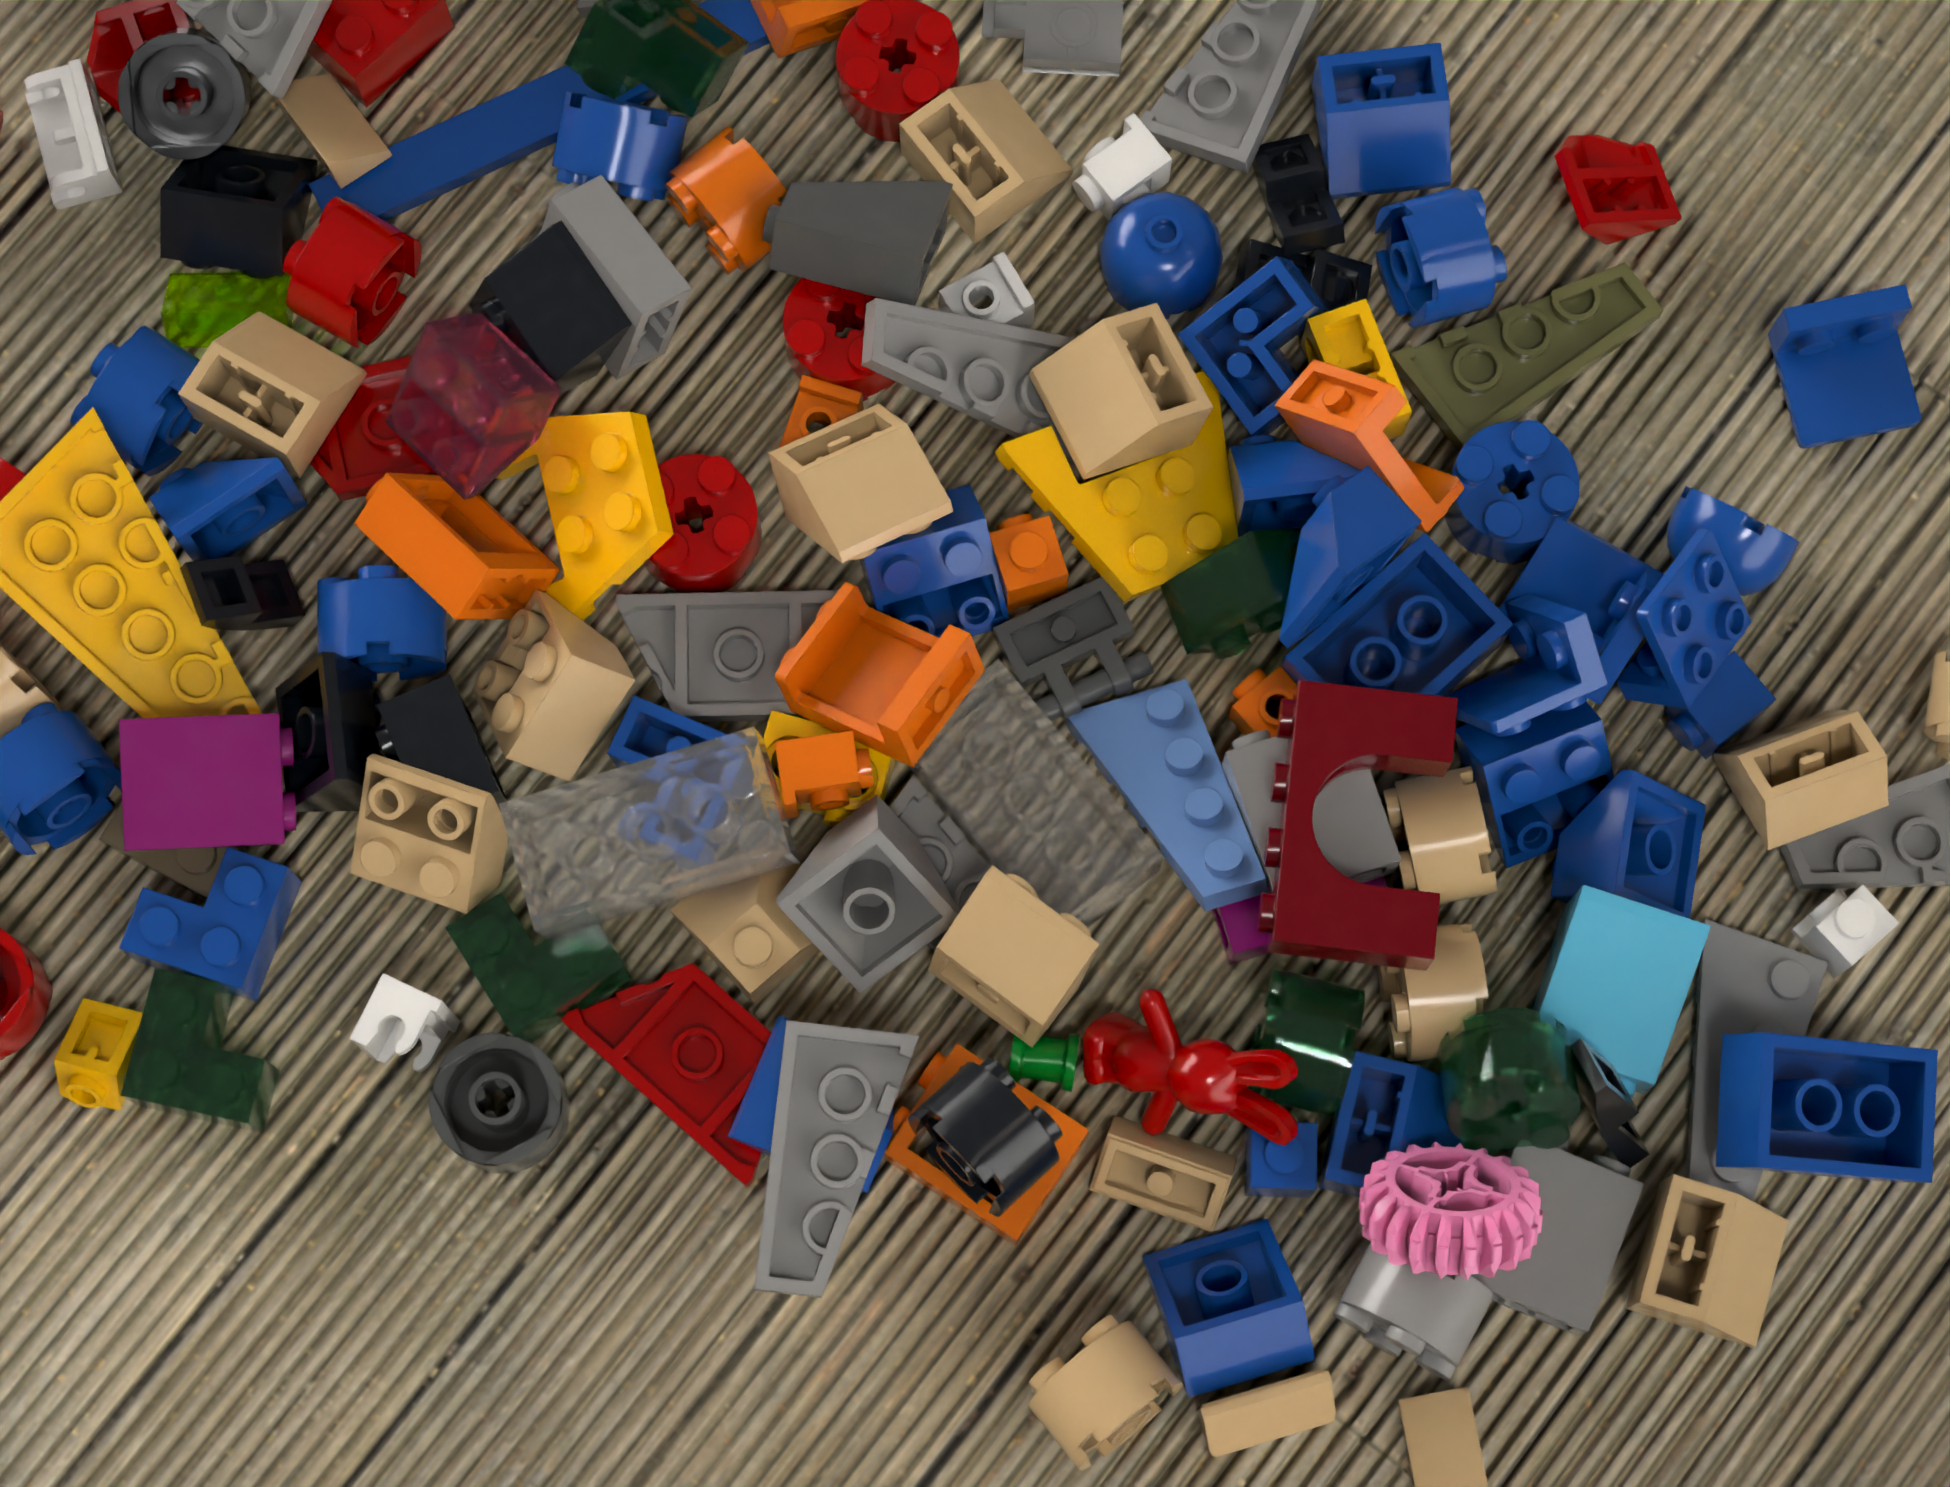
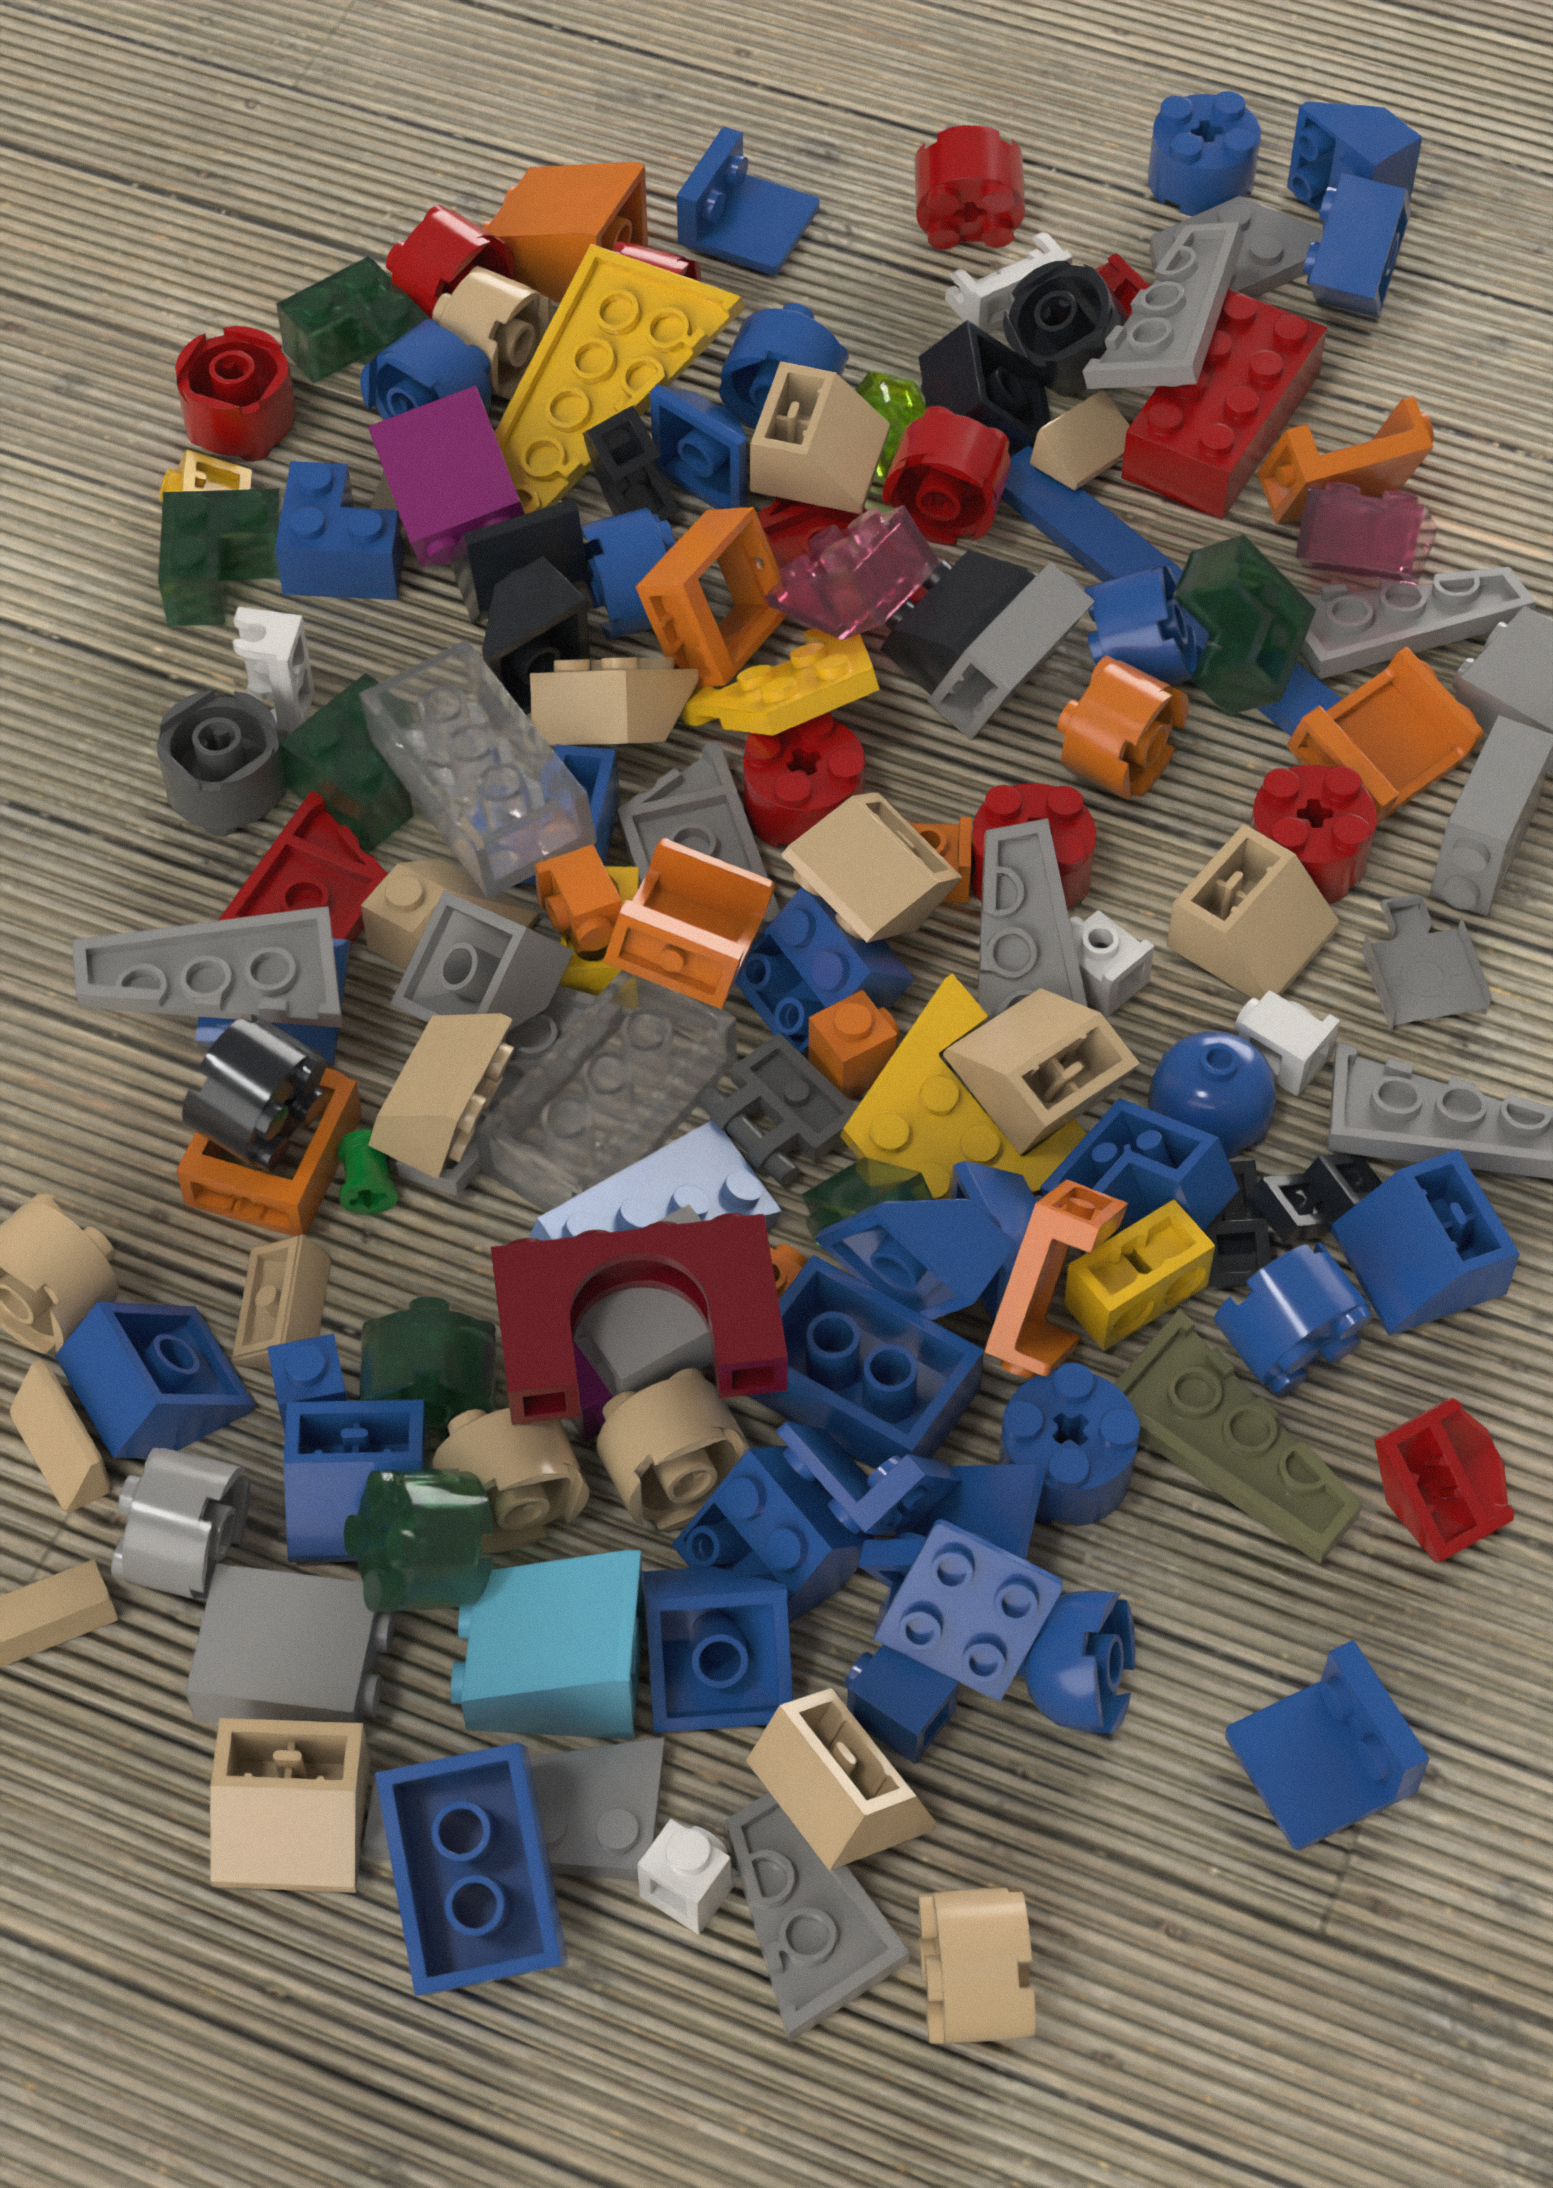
camera: 75 degrees right, 20 degrees down
(428, 835) = (443, 617): tan slope -> none
(860, 234) = (1117, 815): dark grey slope -> none
(1199, 1075) = (369, 1271): red animal -> none
(1450, 1211) = (267, 1497): bright pink gear -> none
(1608, 1103) = (421, 1651): black slope -> none

